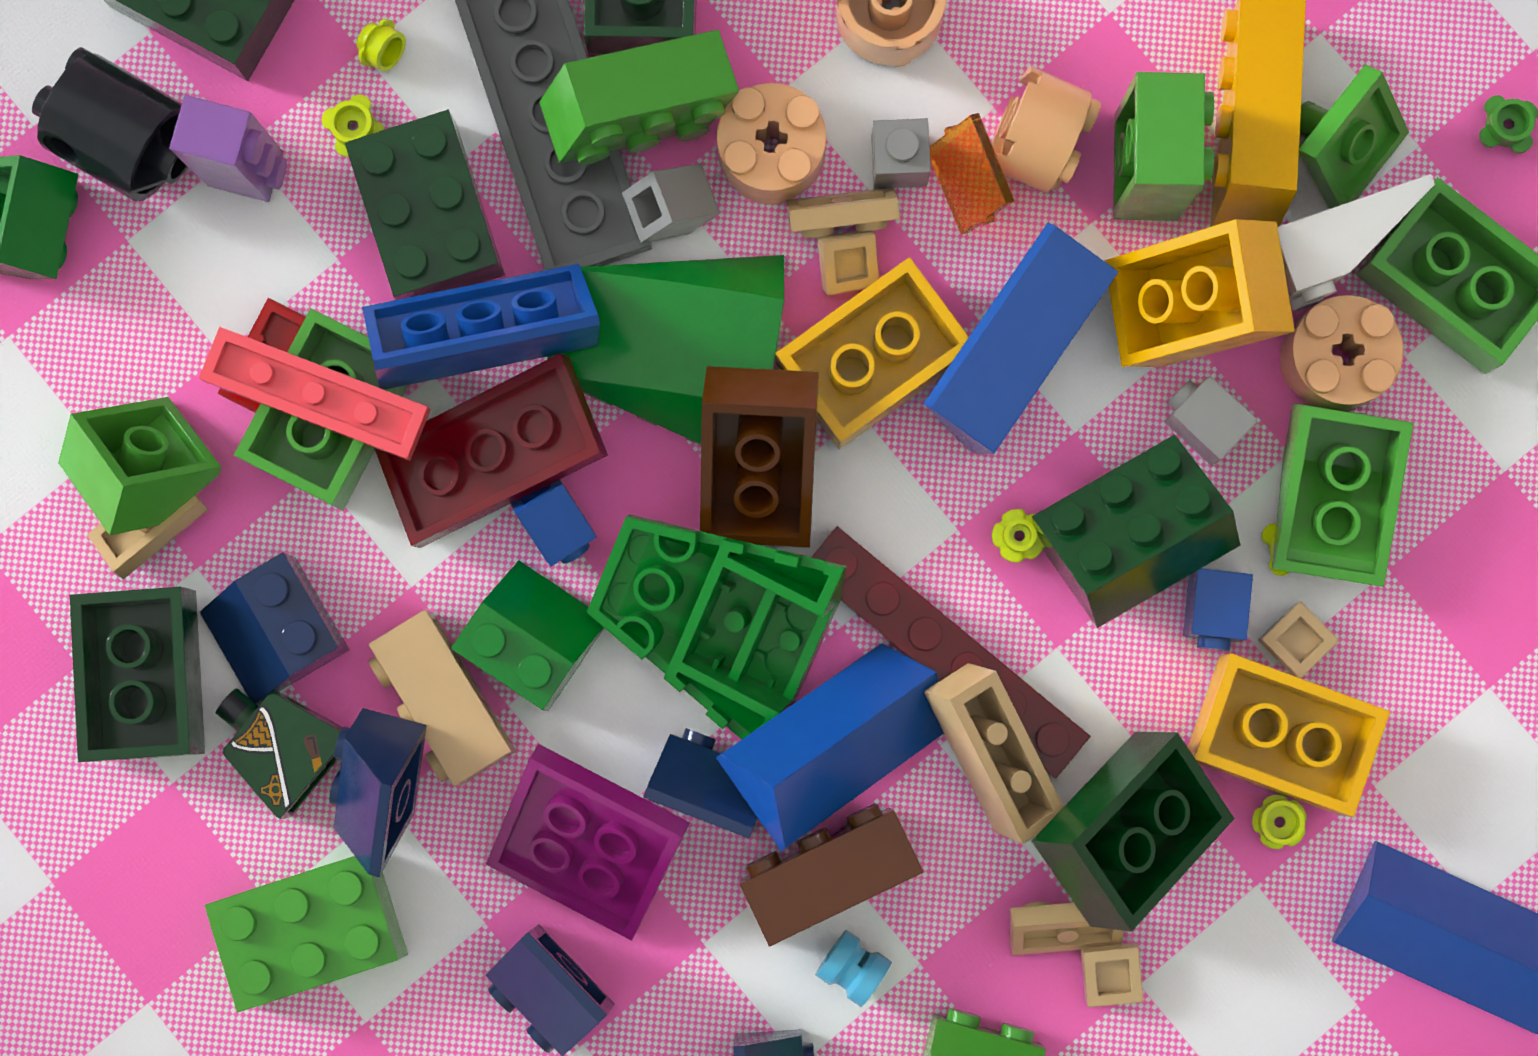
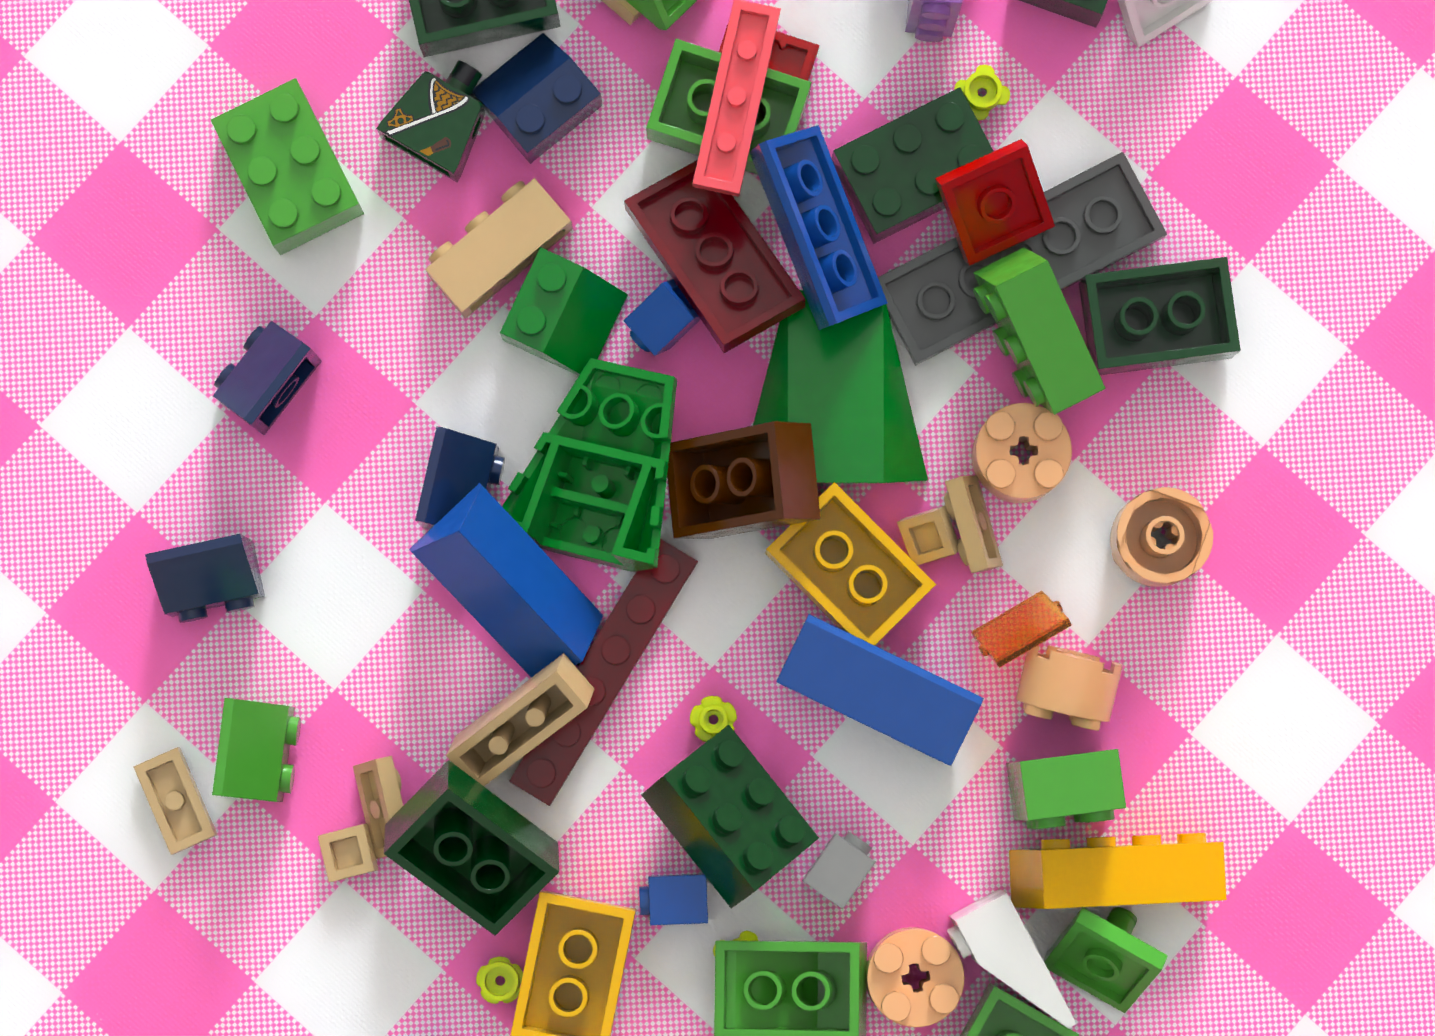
camera: 75 degrees right, 0 degrees up
(376, 785) = (416, 204): dark blue slope -> none
(380, 45) = (1055, 104): neon yellow plate -> none
(483, 122) = (995, 202): none -> red plate
(586, 842) = (393, 387): magenta plate -> none
(670, 202) = (954, 374): light grey brick -> none
(829, 873) = (398, 595): reddish brown brick -> none
(853, 968) = (321, 631): medium azure wheel -> none
(900, 153) = (1030, 566): light grey brick -> none
(1200, 294) = (942, 839): yellow brick -> none
(1298, 640) = (659, 974): tan plate -> none

